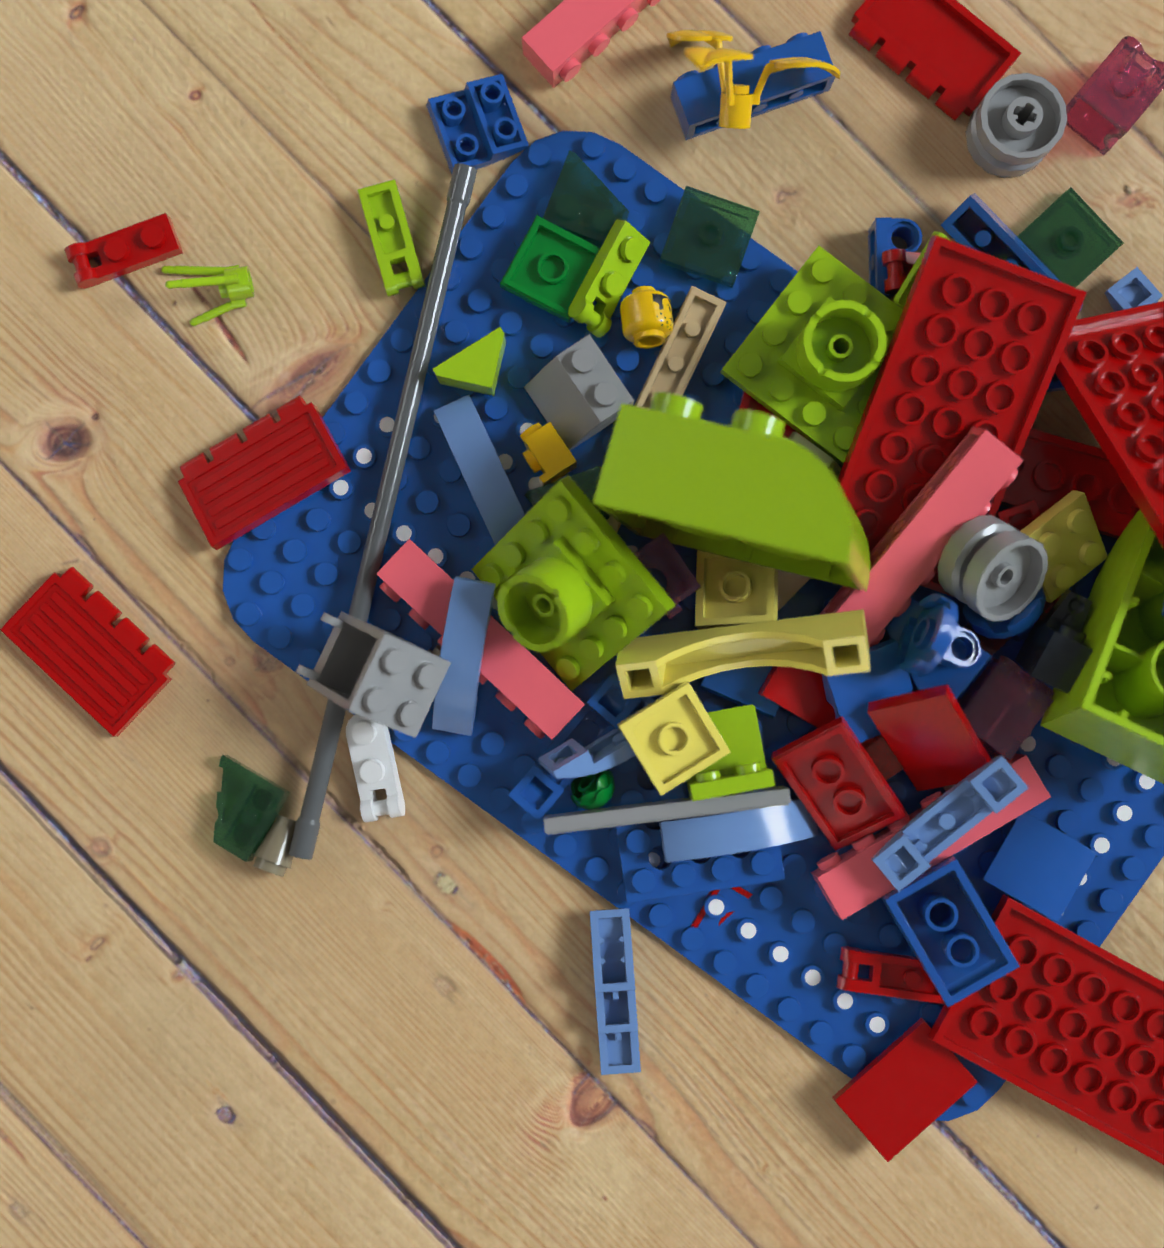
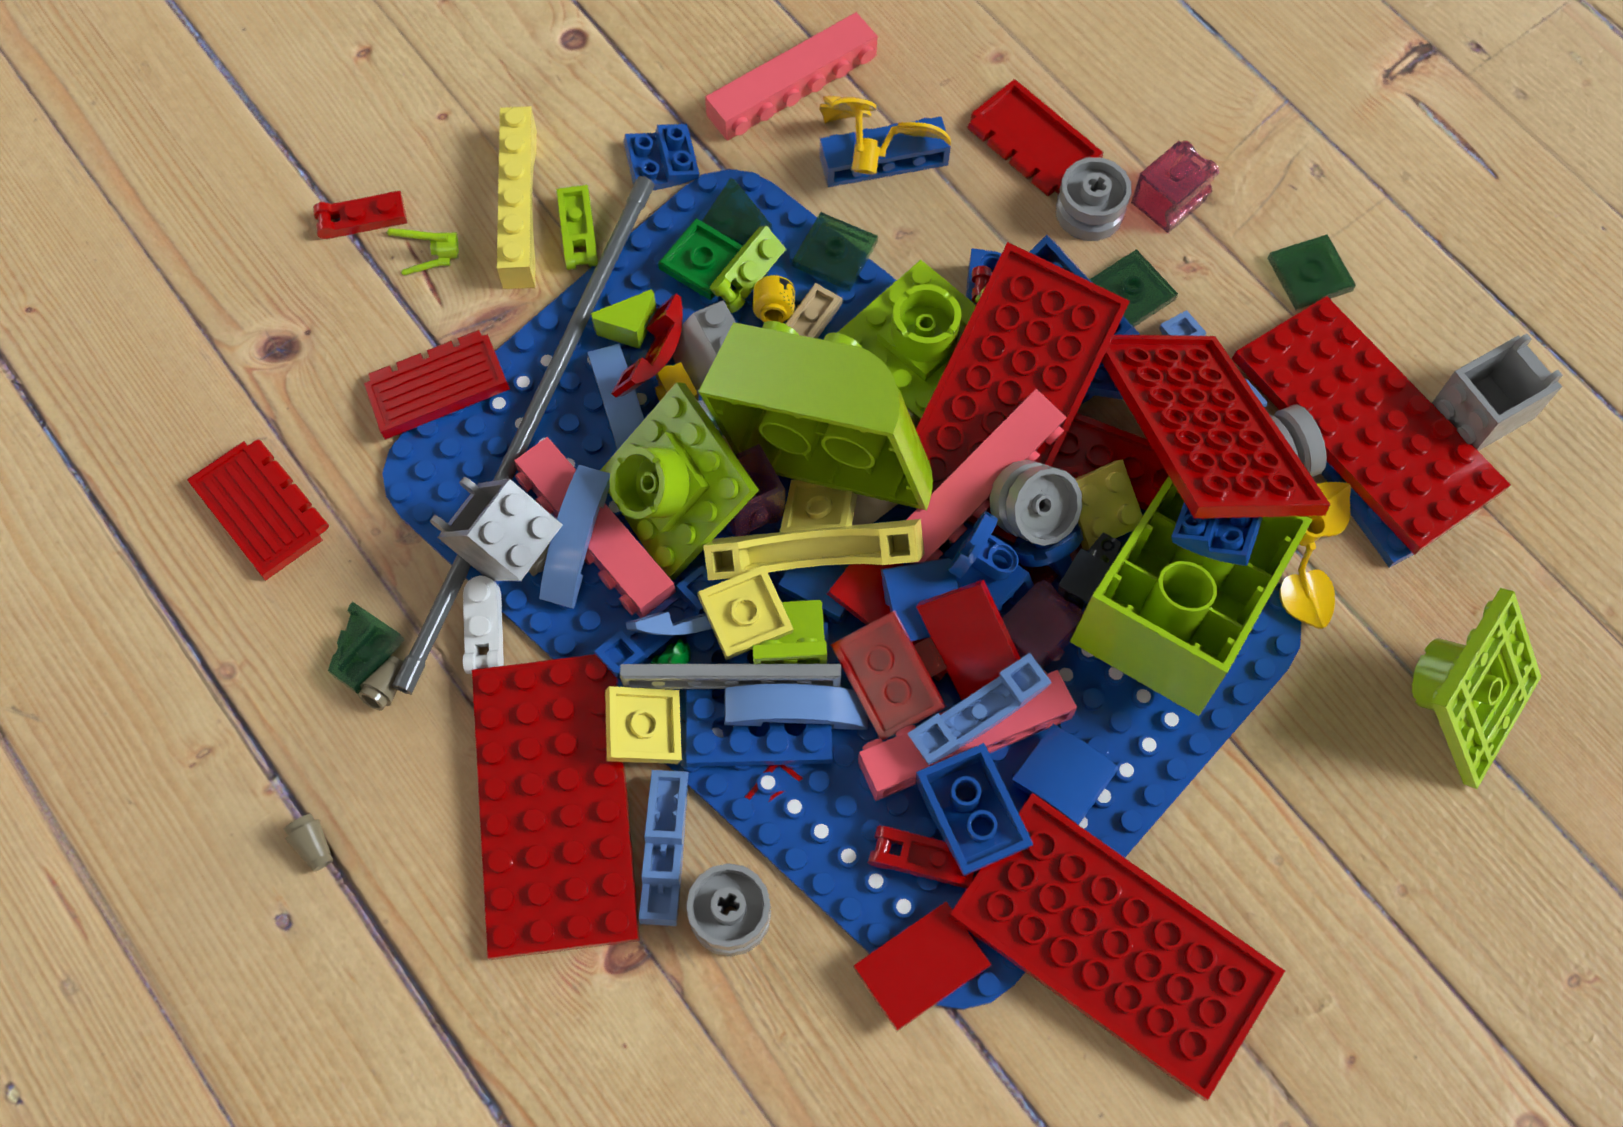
camera: 10 degrees right, 20 degrees down
(235, 1034) = (309, 841): none -> dark tan cone
(309, 205) = (515, 213): none -> light yellow arch
(488, 960) = (551, 810): none -> red plate
(524, 368) = (666, 327): none -> red slope
(574, 872) = (643, 725): none -> light yellow plate
(700, 1081) = (726, 887): none -> light grey wheel

